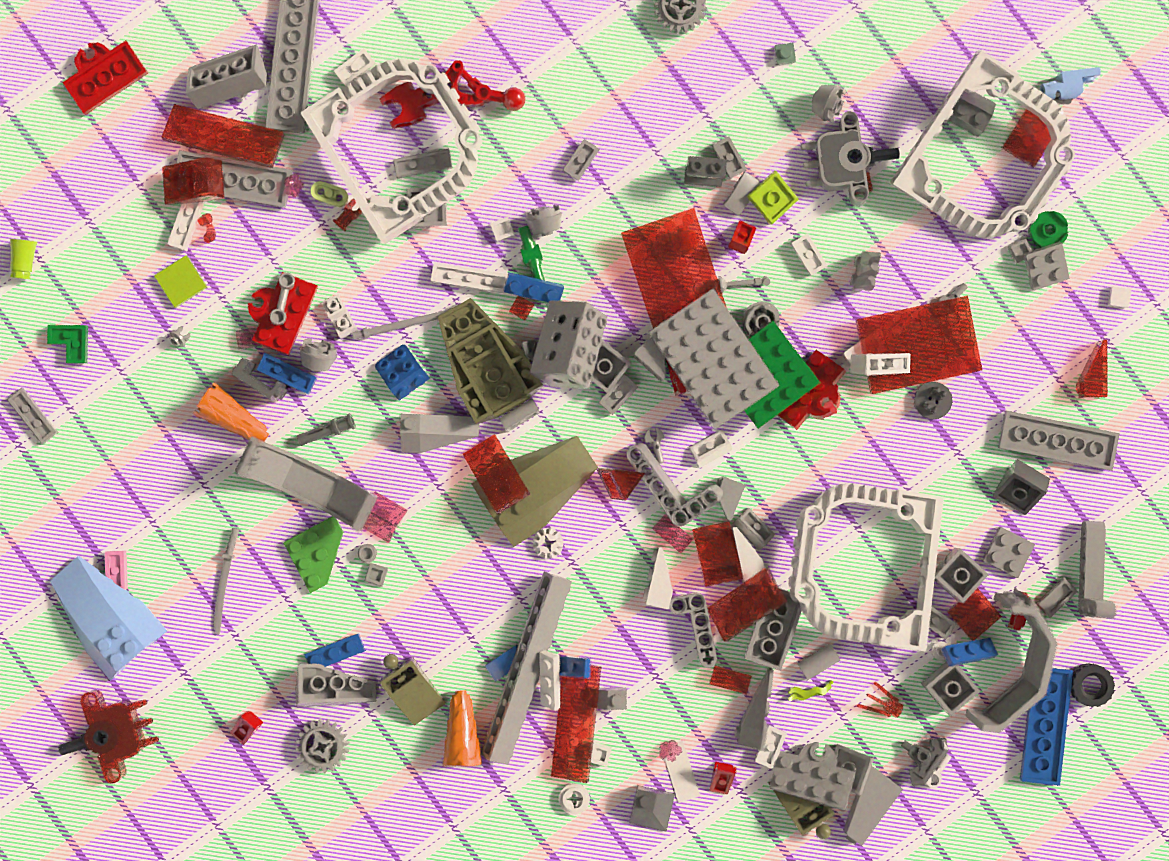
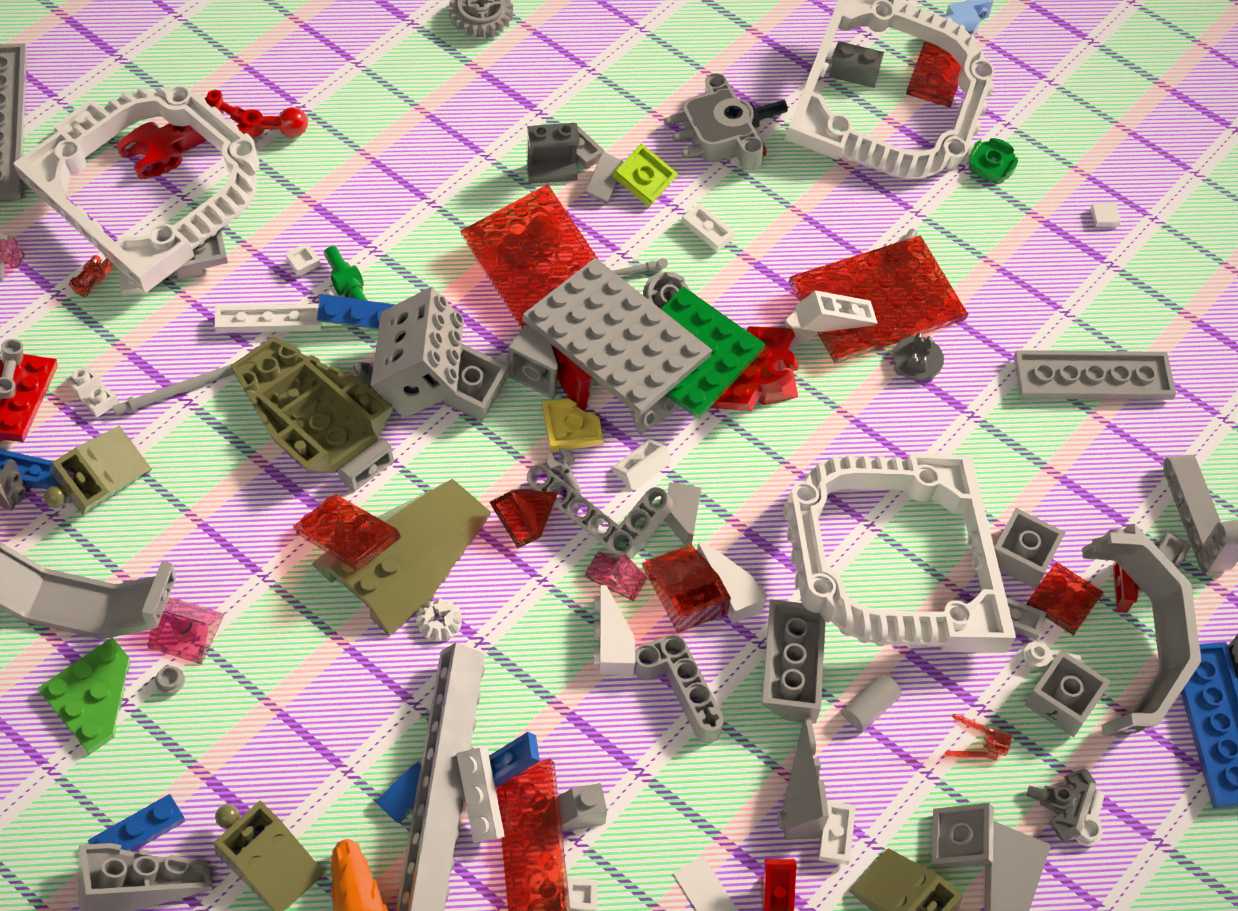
camera: 15 degrees left, 30 degrees down
(317, 355) = (64, 432): light grey cone -> none
(330, 194) = (62, 254): yellowish green plate -> none
(334, 427) = (100, 523): dark grey pin -> none
(340, 386) = (100, 469): none -> slope
(376, 574) = (187, 708): light grey tile -> none
(401, 372) = (191, 440): blue bracket -> none
(422, 163) = (176, 209): light grey tile -> none
(428, 432) = (241, 503): light grey wedge -> none
(521, 308) = (345, 341): clear red plate -> none
(544, 220) = (356, 235): light grey cone -> none
(581, 160) = (391, 173): light grey plate -> none
(618, 394) = (498, 418): light grey plate -> none
(667, 410) = (570, 426): none -> light yellow plate
(669, 750) = (687, 868): clear pink plant -> none
(730, 679) = (750, 749): clear red plate -> none
(742, 237) = (617, 225): red slope -> none
(746, 604) = (745, 631): clear red plate -> none
(754, 529) = (731, 547): light grey slope -> none
(785, 53) = (619, 40): sand green plate -> none
(800, 694) = (862, 752): lime hair -> none
(813, 777) = (913, 853): light grey plate -> none
(828, 102) = (684, 69): light grey cone -> none
(866, 271) = (784, 227): light grey plate -> none
(969, 652) = (1076, 638): blue plate -> none
(1008, 552) = (1081, 514): light grey plate -> none
(1018, 249) = (968, 187): light grey tile -> none
(1022, 487) = (1068, 435): dark grey slope -> none
(1046, 266) = (1005, 193): light grey plate -> none
(1094, 377) = (1110, 301): clear red slope -> none

